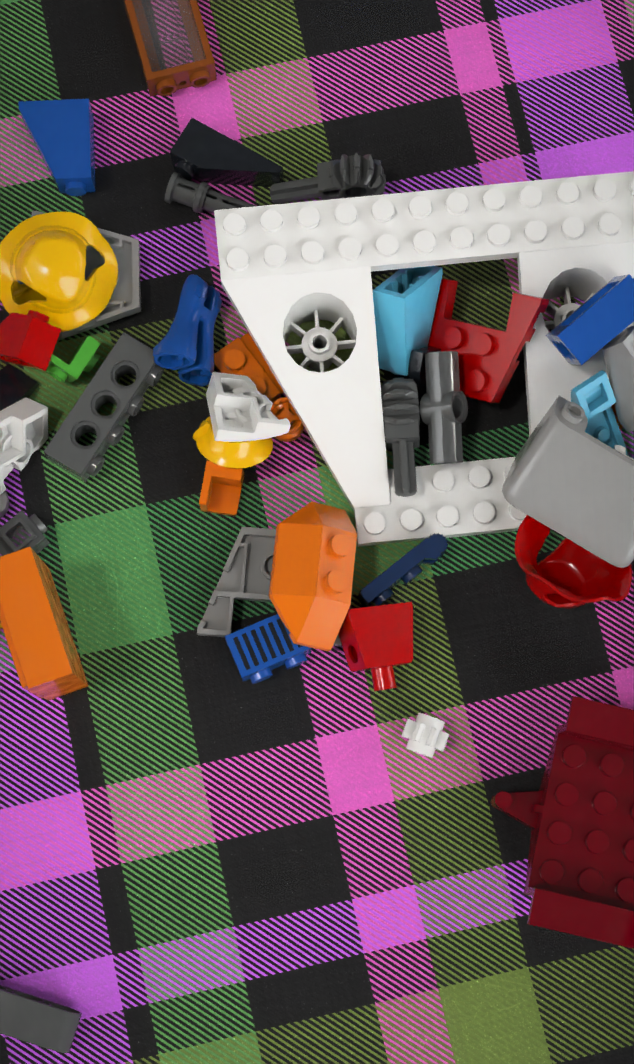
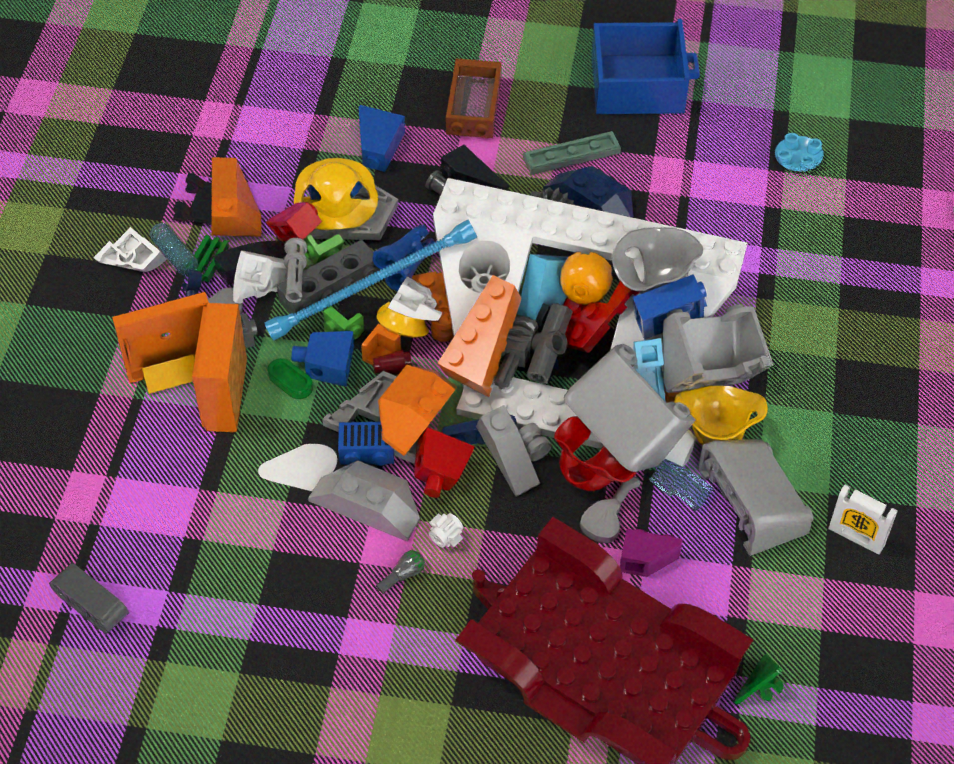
camera: 25 degrees right, 25 degrees down
(53, 409) = (295, 262): none -> light grey pin
(121, 579) = (290, 378): none -> green tile
(148, 477) = (336, 322): none -> bright green bracket
(157, 531) = (327, 356): none -> blue torso
(198, 706) = (300, 466): none -> white sticker
(249, 508) = (392, 363): none -> dark red cone
(274, 301) = (282, 325): none -> dark azure hose
(304, 720) = (369, 498): none -> light grey wedge
(334, 68) = (571, 153): none -> sand green tile
(360, 453) = (482, 337): none -> wedge
(397, 131) = (594, 190): none -> dark blue wedge
(399, 800) = (409, 565): none -> dark grey piece
(455, 590) = (508, 450): none -> light grey slope
(462, 303) = (586, 278): none -> light orange cylinder
(476, 558) = (535, 444): none -> light grey wheel
(575, 254) = (665, 255): none -> light grey piece
(604, 637) = (601, 518): none -> light grey piece

